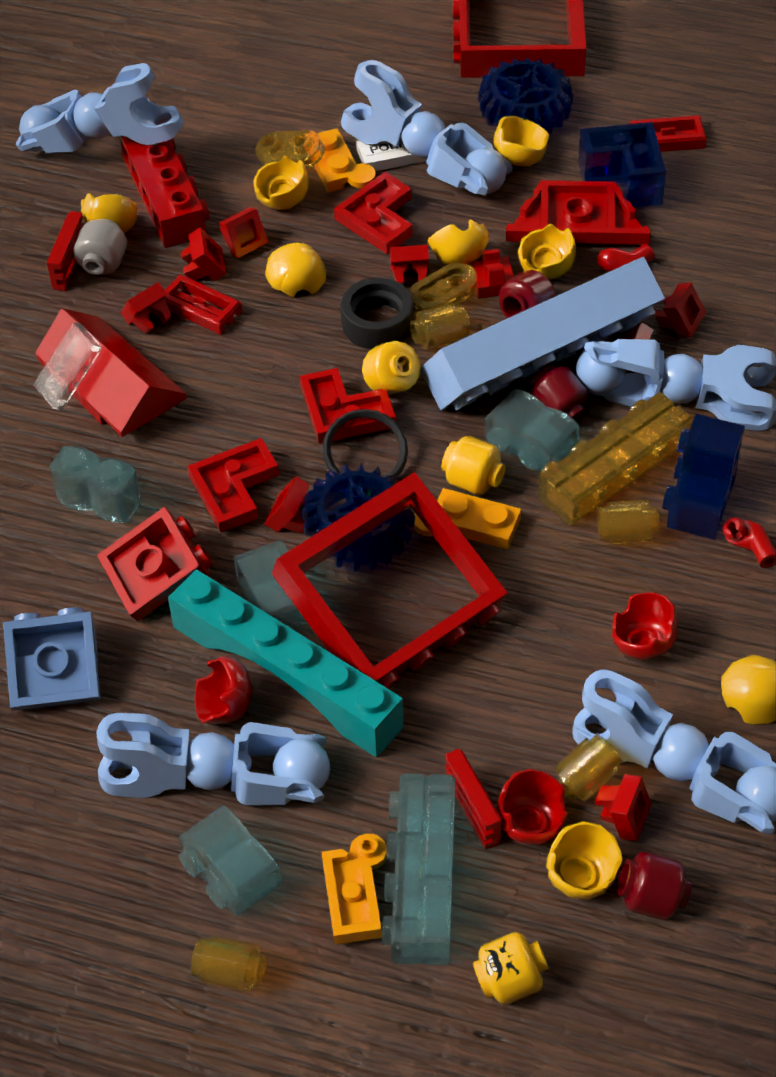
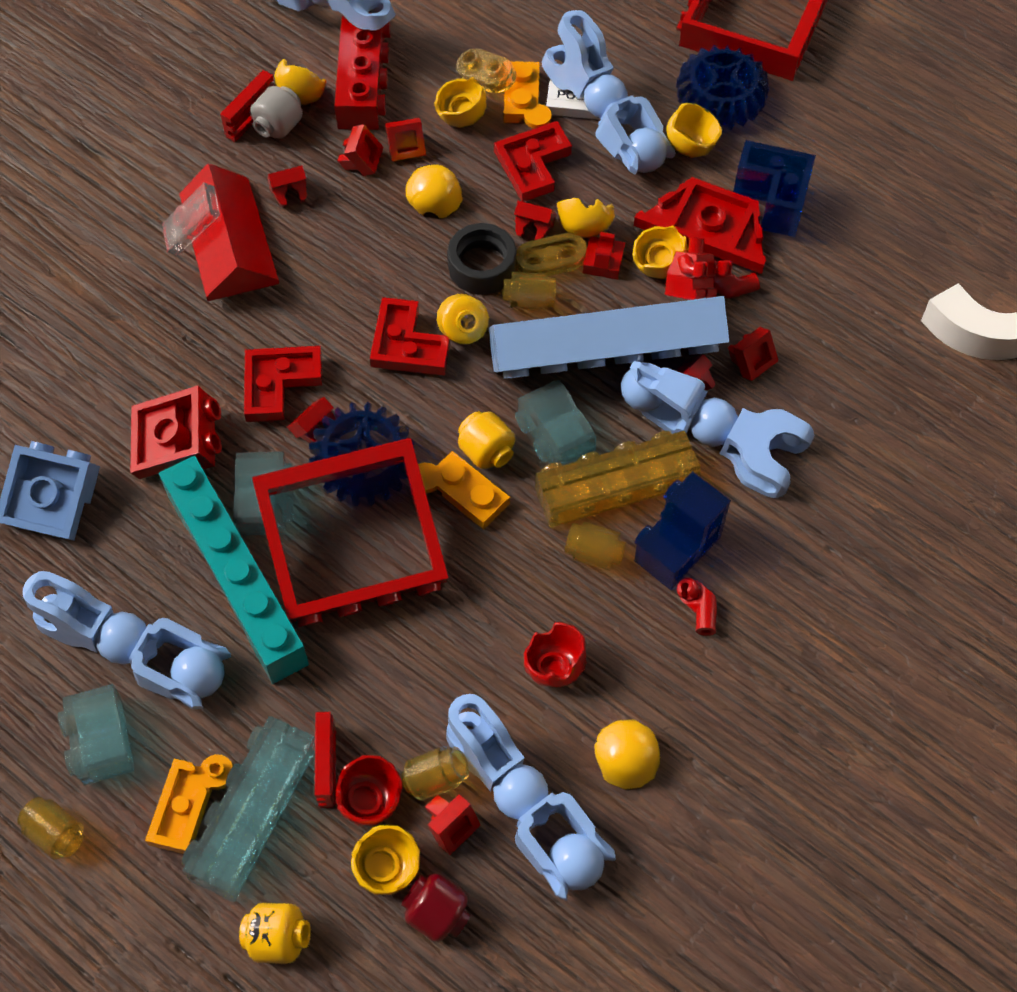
camera: 20 degrees right, 10 degrees up
(95, 484) = (161, 339): clear light blue brick -> none
(196, 309) = (351, 214): red tile -> none
(224, 693) = (169, 577): red hair -> none
(363, 414) = (420, 357): black tyre -> none
(524, 292) = (619, 288): dark red head -> none
(560, 390) = (598, 397): dark red head -> none
(591, 254) = (694, 271): none -> red piece
(678, 133) = (836, 172): red tile -> none

